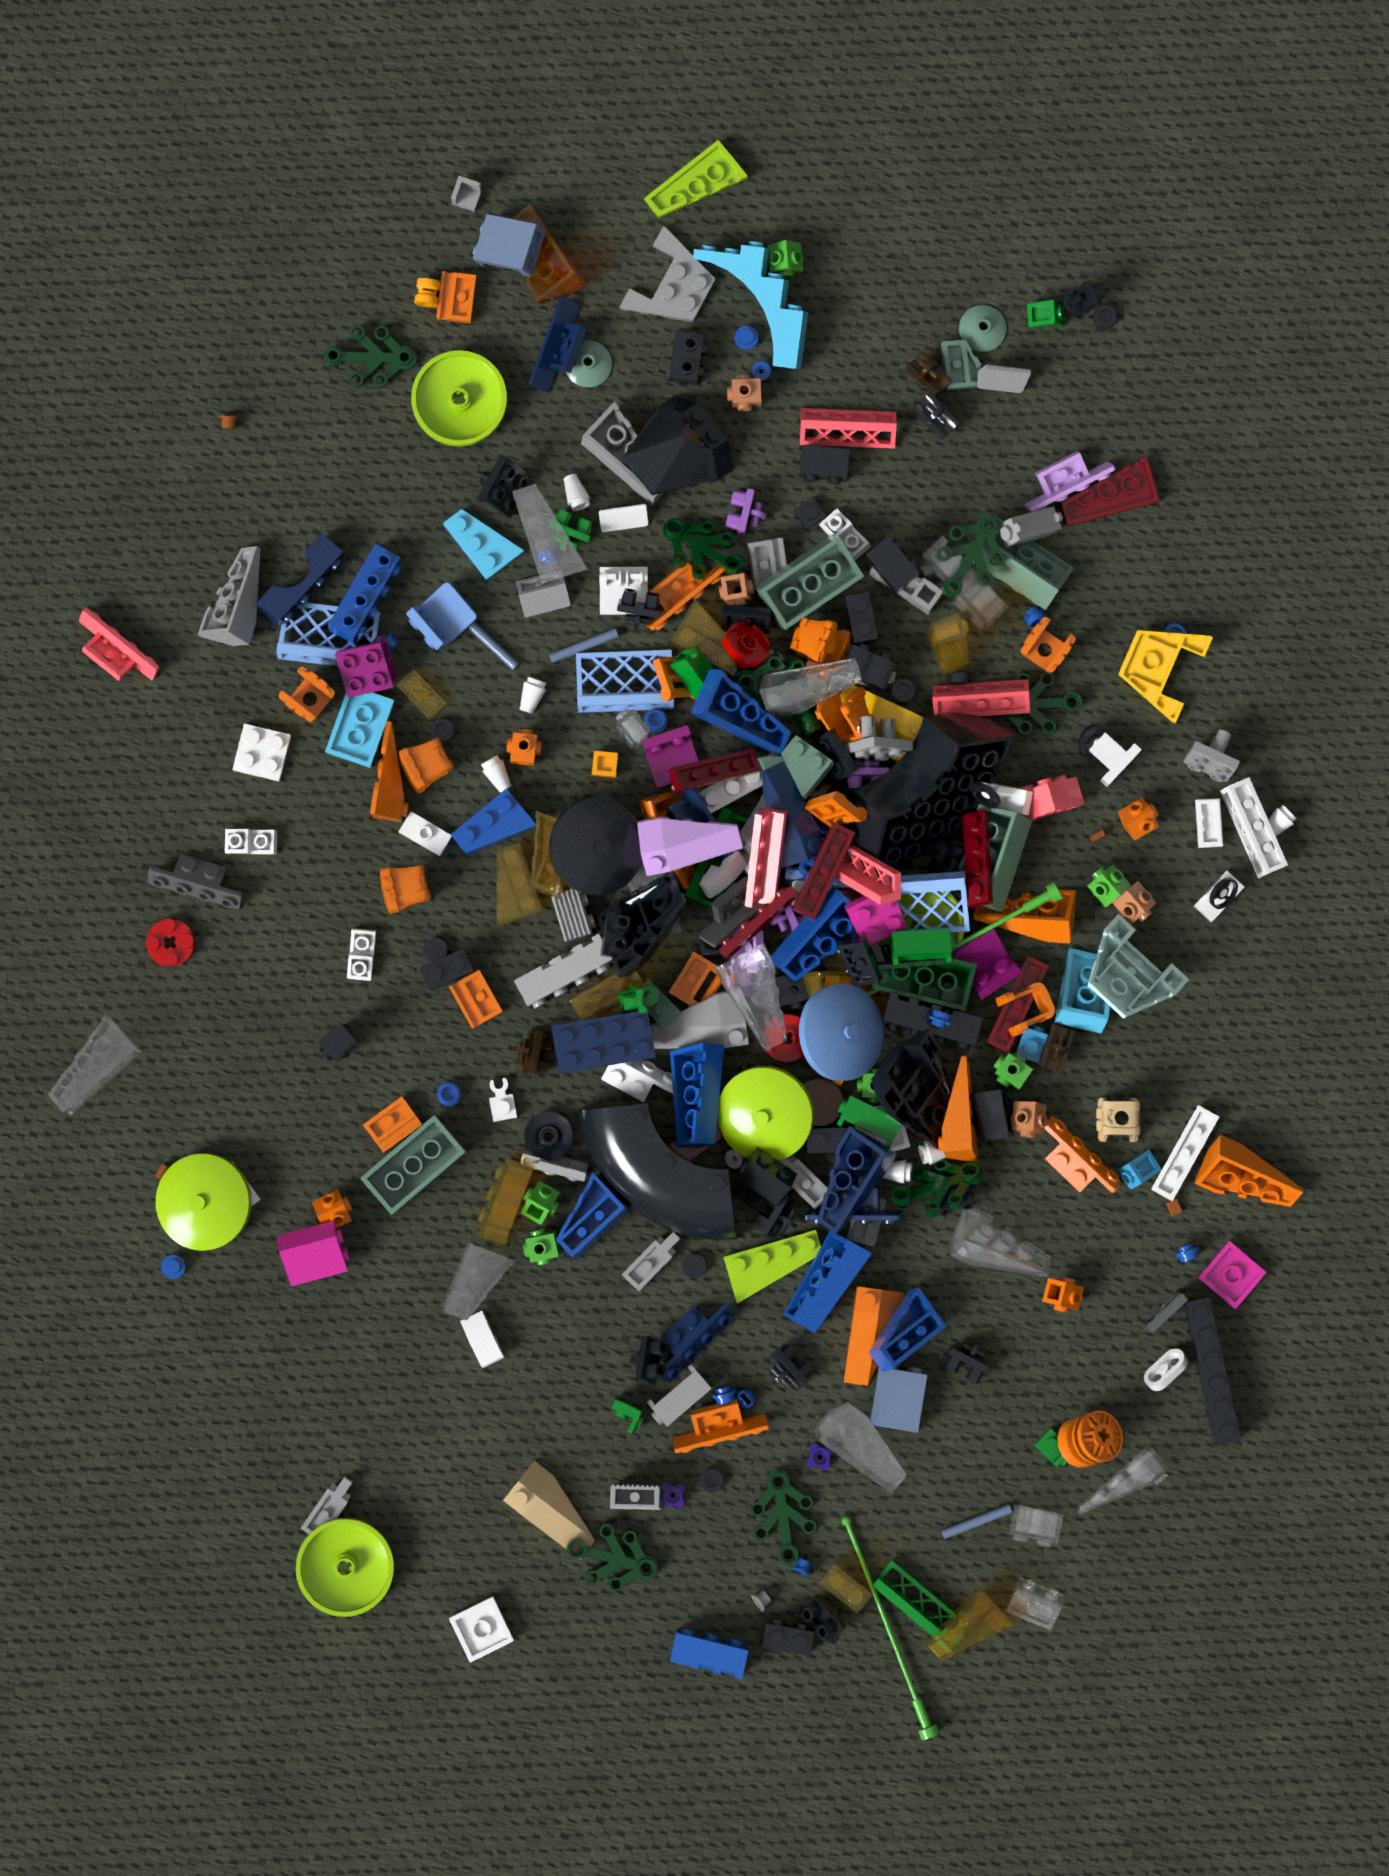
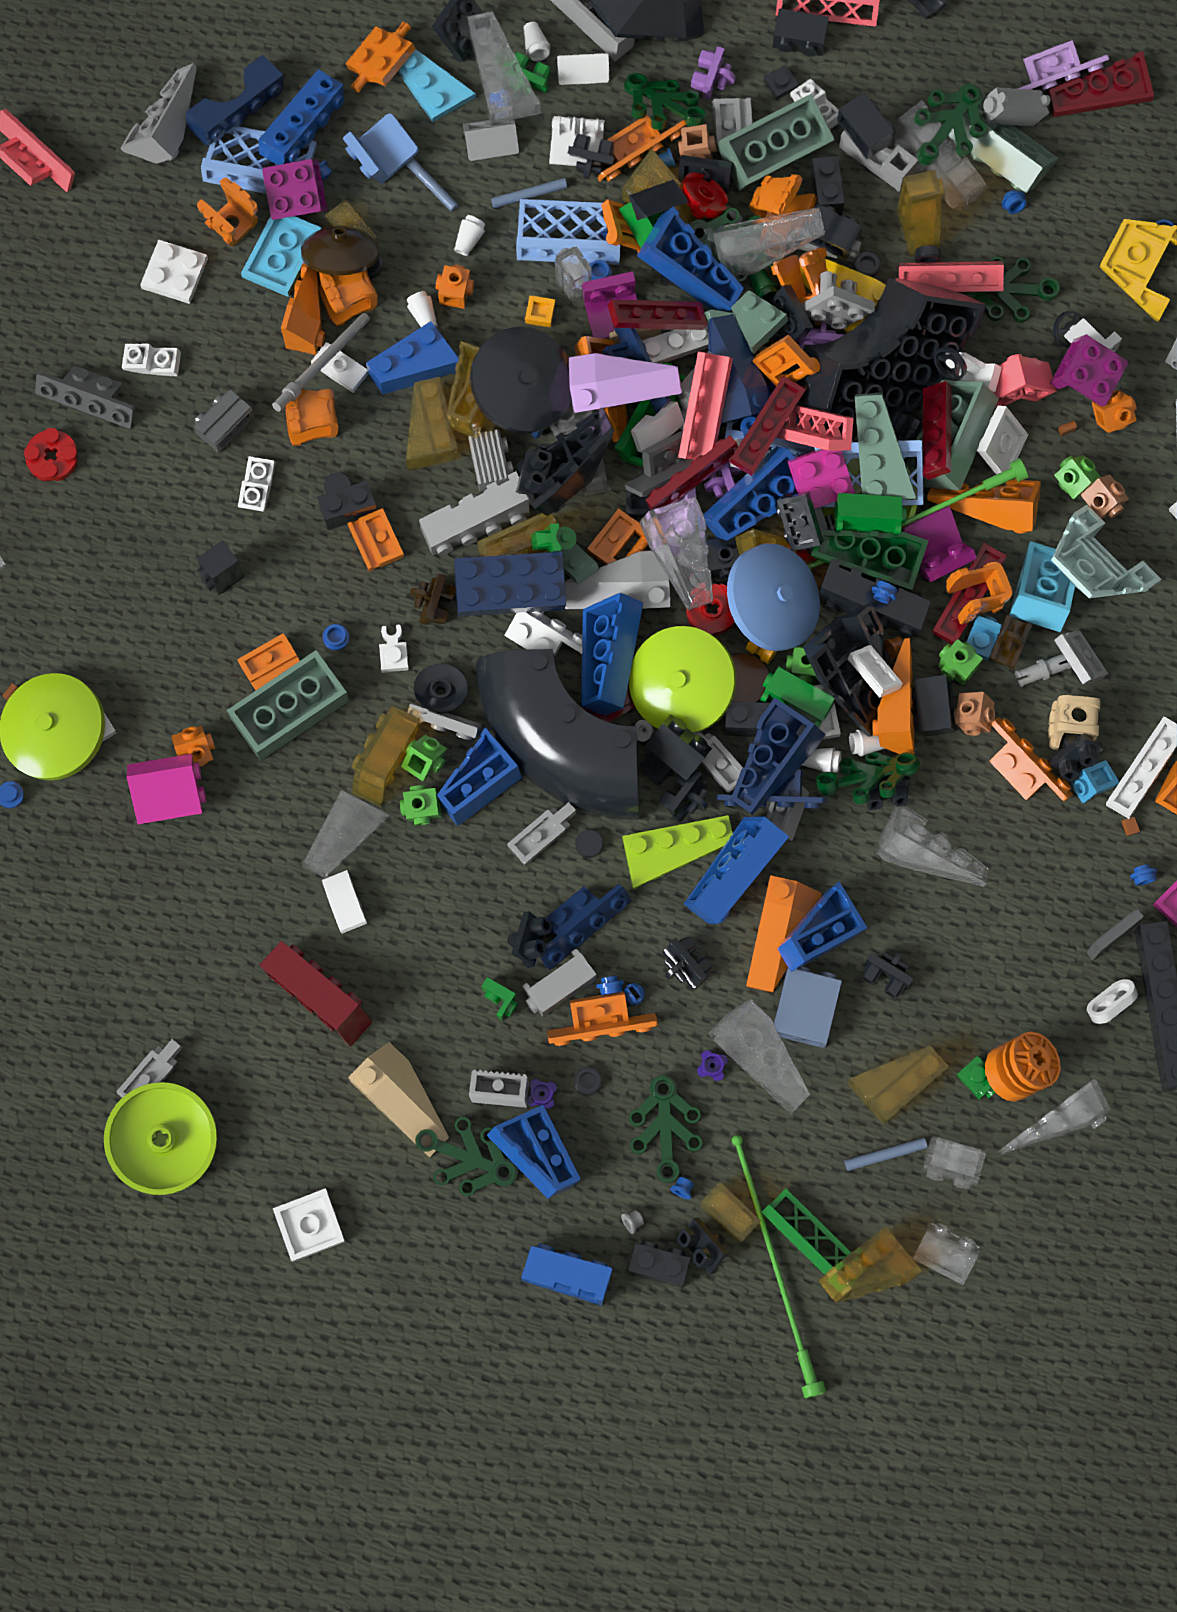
camera: 10 degrees right, 10 degrees down
(324, 896) = (223, 420): none -> dark grey brick
(388, 873) = (293, 389): none -> light grey bar
(415, 727) = (339, 250): none -> dark brown dish
(431, 521) = (380, 56): none -> orange plate
(465, 1424) = (316, 992): none -> dark red wedge
(673, 1549) = (537, 1151): none -> blue wedge
(705, 659) = (657, 199): none -> black slope
(709, 602) = (668, 159): none -> blue piece
(927, 891) = (880, 454): none -> sand green wing
(937, 1093) = (875, 671): none -> white plate
(952, 1059) = (893, 646): none -> dark orange piece
(984, 1459) = (897, 1083): none -> clear yellow wedge
(1038, 859) = (1002, 440): none -> white plate
(1039, 636) = (1014, 221): orange piece -> none
(1063, 1294) = (1001, 906): orange brick -> none
(1088, 1069) = (1042, 670): none -> light grey pin
(1113, 787) = (1090, 369): none -> magenta bracket
(1120, 1149) = (1077, 753): none -> black hips
(1121, 1056) = (1081, 657): none -> light grey plate

